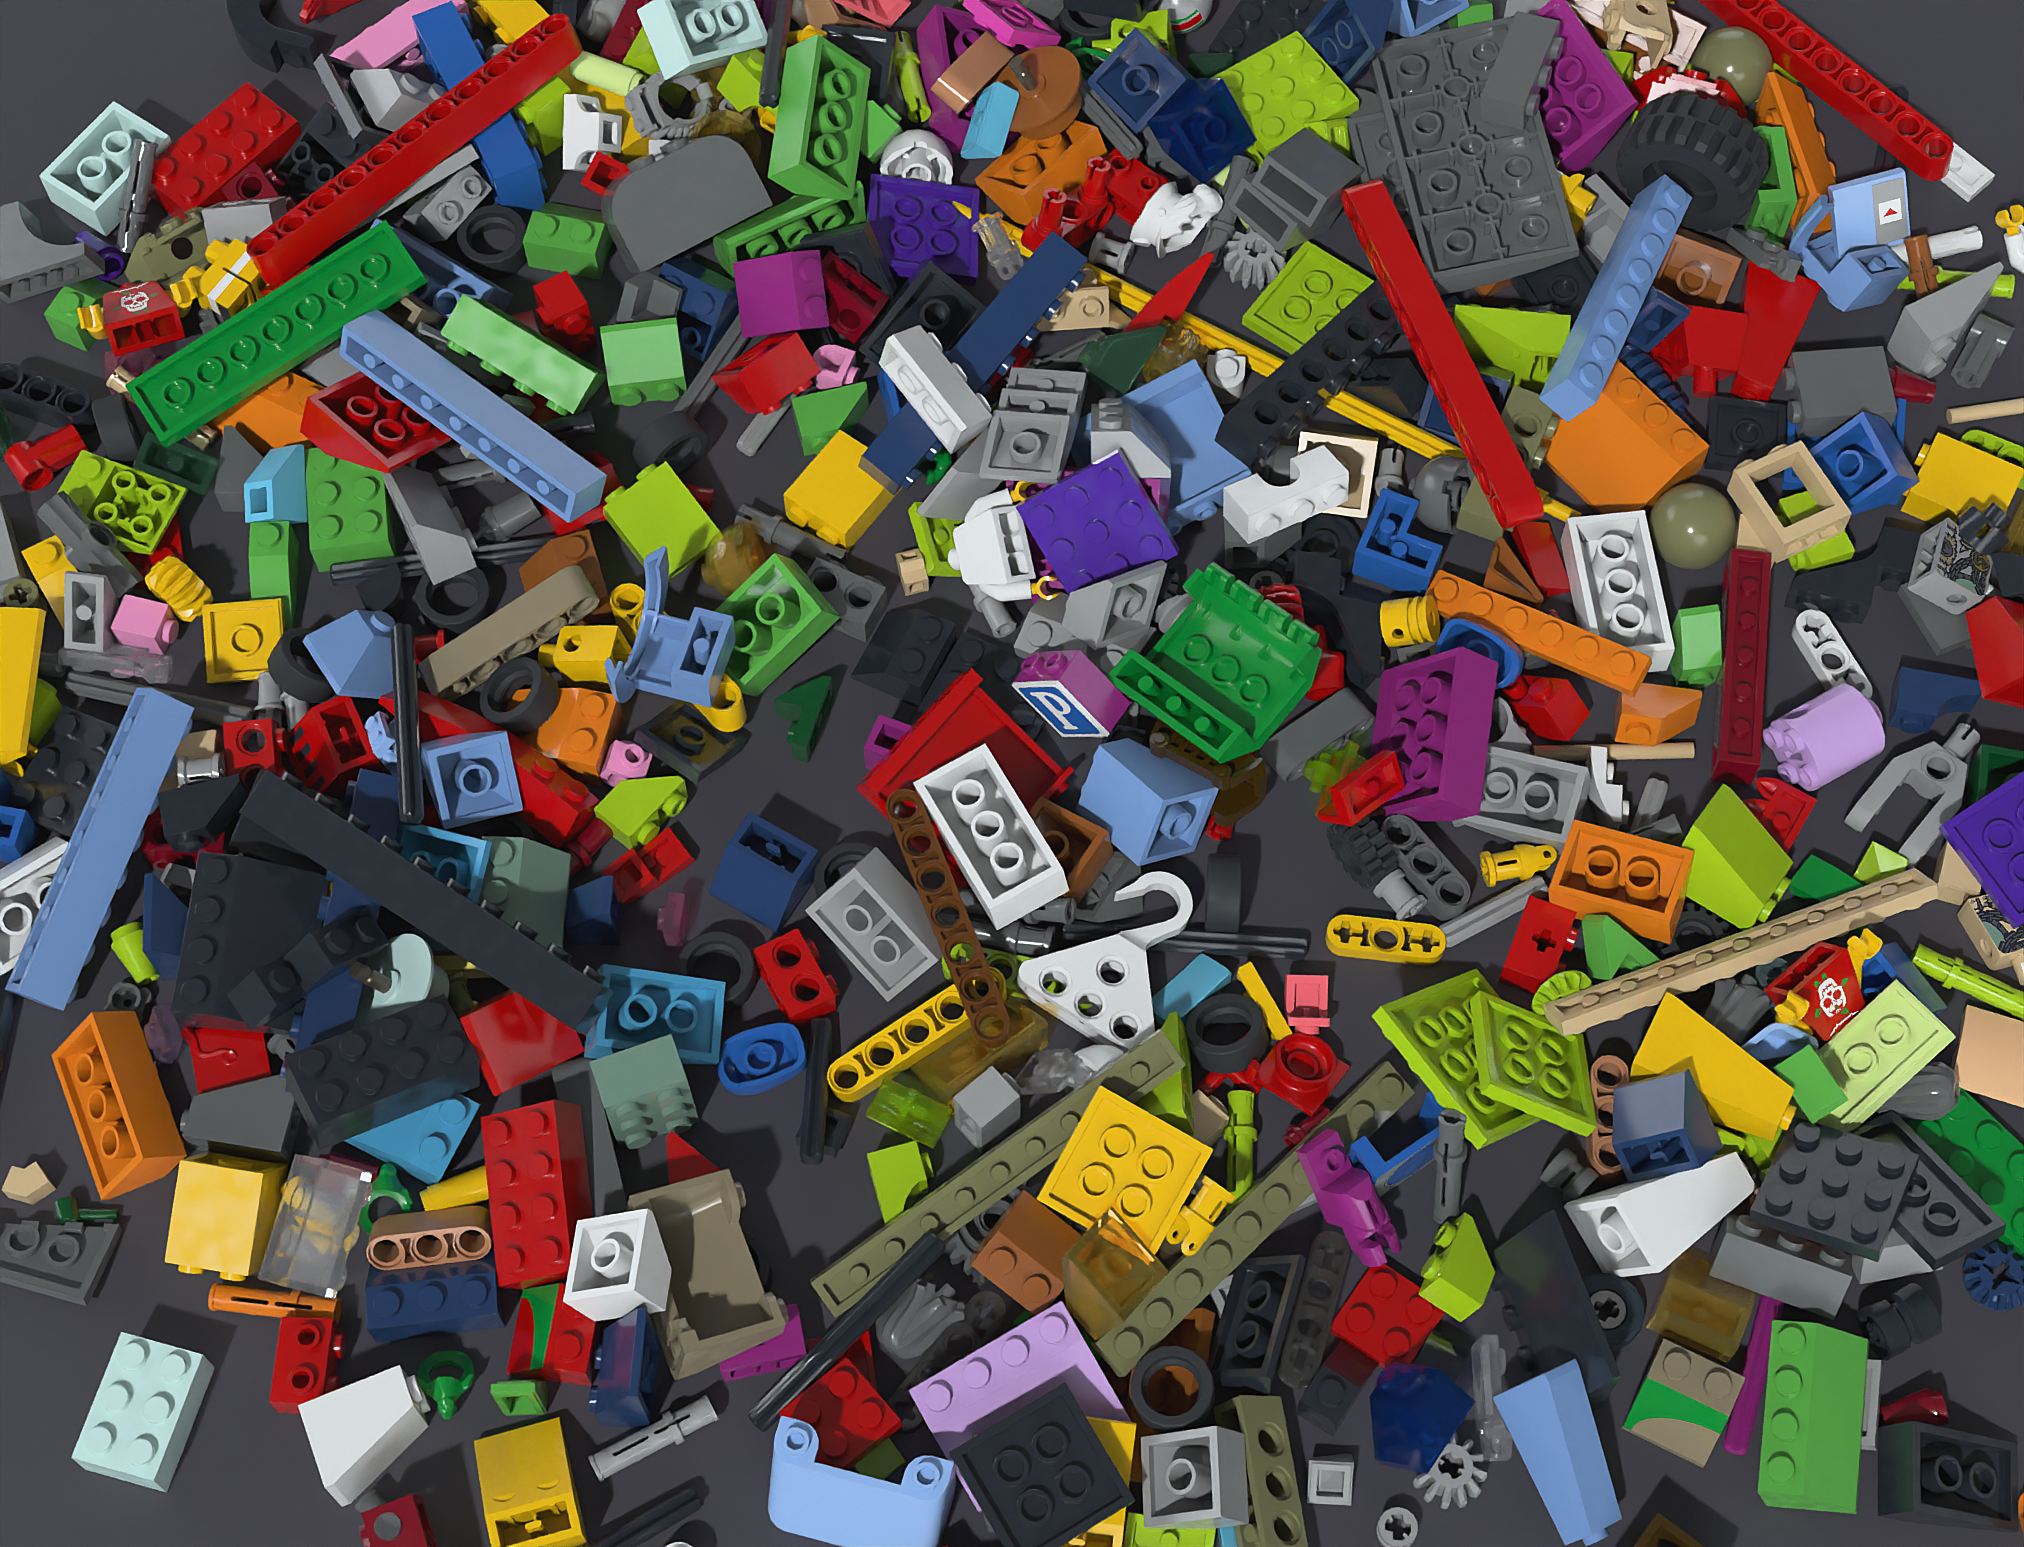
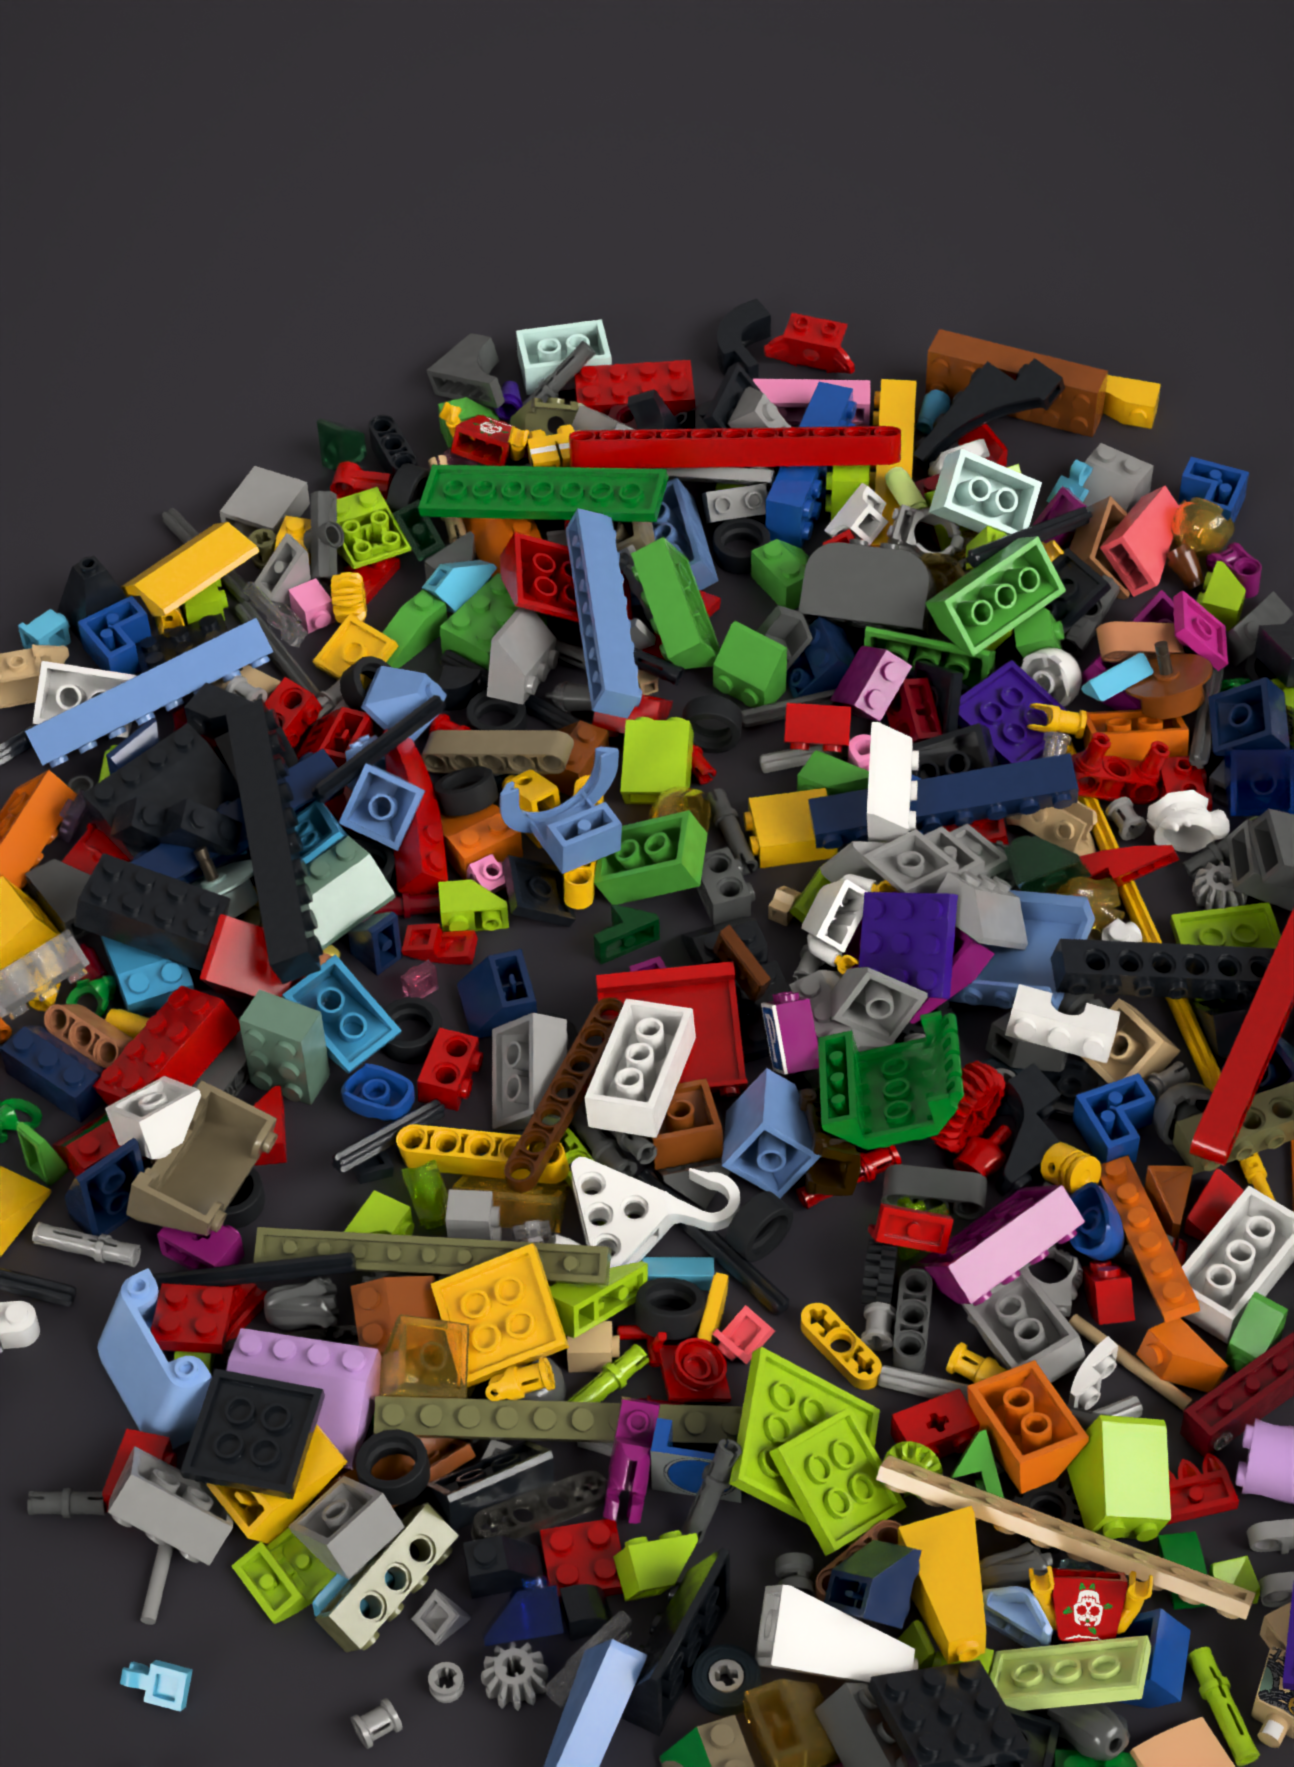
camera: 45 degrees right, 15 degrees down
(291, 172) = (651, 412): none -> black arch
(564, 313) = (729, 603): red brick -> none
(907, 69) = (1119, 613): lime pin -> none
(954, 657) = (748, 971): none -> reddish brown tile
(974, 200) = (1060, 720): none -> yellow piece
(1813, 1082) = (1013, 1642): bright green slope -> none

